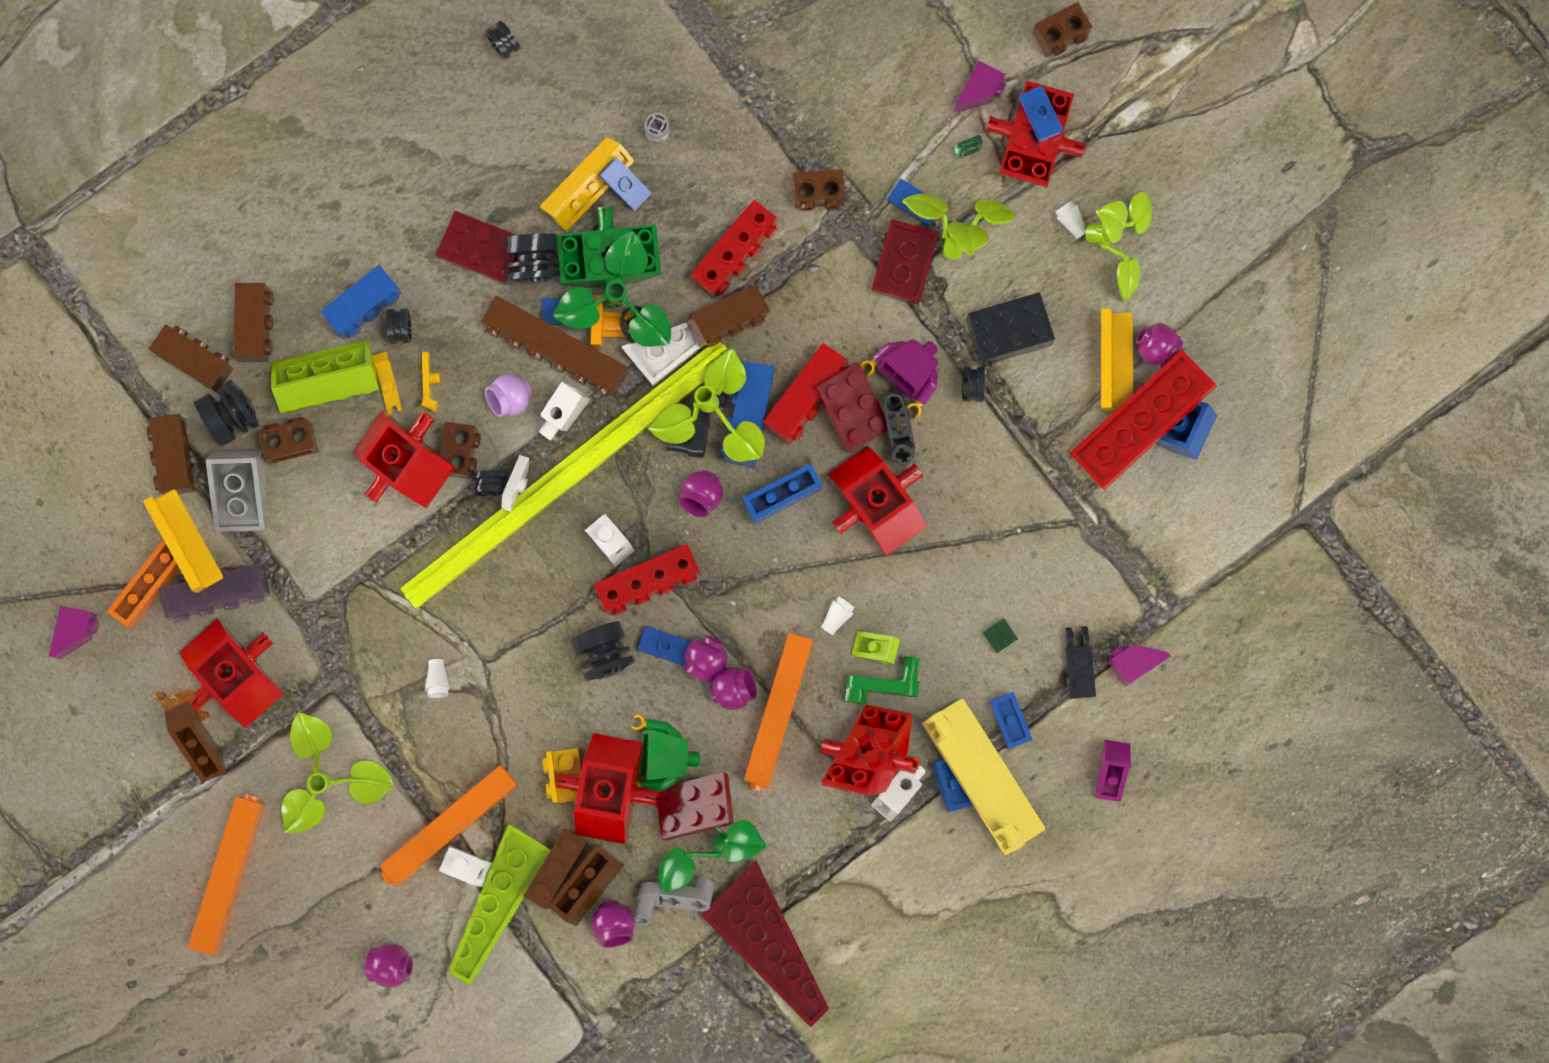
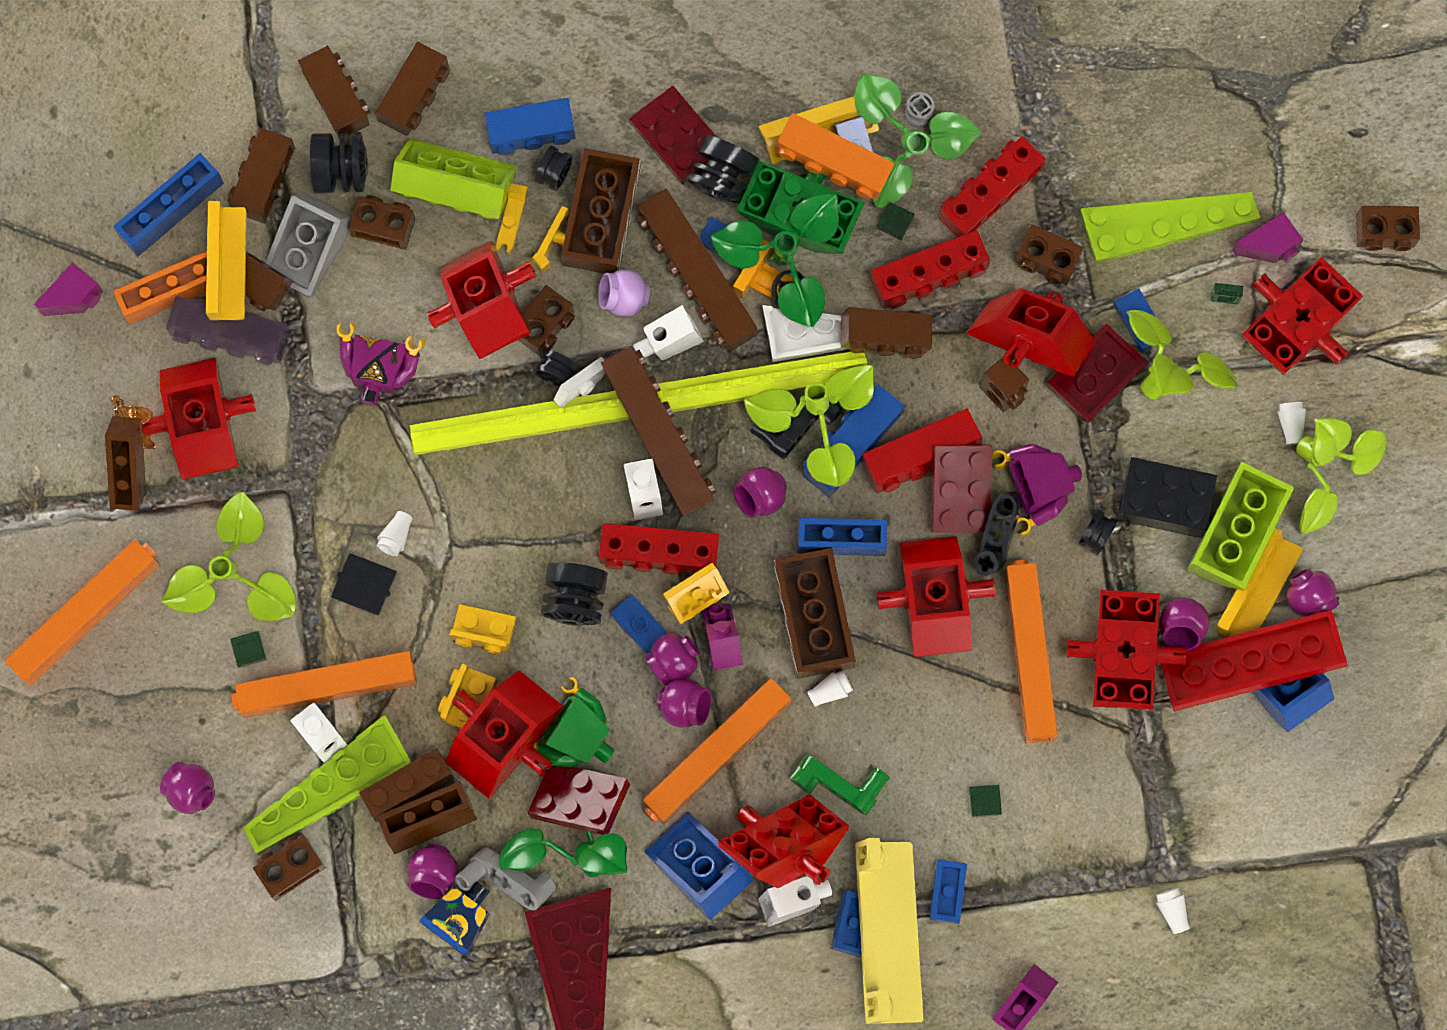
camera: 30 degrees right, 5 degrees down
(110, 518) = (168, 204): none -> blue brick
(223, 539) = (264, 284): none -> reddish brown slope
(347, 554) = (377, 363): none -> magenta torso
(373, 831) = (248, 649): none -> clear green tile
(434, 731) = (364, 584): none -> black piece
(455, 340) = (601, 211): none -> reddish brown brick
(506, 985) = (293, 874): none -> reddish brown brick
(545, 715) = (483, 629): none -> yellow bracket
(595, 489) = (657, 430): none -> reddish brown brick
(613, 201) = (834, 157): none -> orange brick
(653, 948) = (458, 918): none -> torso
(686, 225) = (895, 221): none -> clear green tile
(691, 137) = (949, 134): none -> bright green plant
(695, 599) = (696, 593): none -> yellow bracket
(733, 620) = (722, 636): none -> magenta slope
(747, 159) = (992, 188): none -> red brick
(794, 564) = (814, 613): none -> reddish brown brick
(809, 806) = (699, 866): none -> blue slope
(841, 254) = (1035, 329): none -> red slope
(841, 308) = (1004, 385): none -> reddish brown brick
(875, 647) = (851, 742): lime slope -> none
(879, 126) = (1144, 226): none -> lime wing
(972, 503) = (1030, 652): none -> orange brick
(1035, 440) = (1132, 623): none -> red slope
(1040, 113) = (1316, 297): blue plate -> none
(1076, 419) = (1184, 623): none -> magenta piece
(1078, 323) = (1240, 528): none -> lime slope
(1079, 666) = (1050, 876): black hinge -> none
(1135, 661) = (1111, 903): magenta slope -> none
(1183, 639) = (1173, 908): none -> white cone

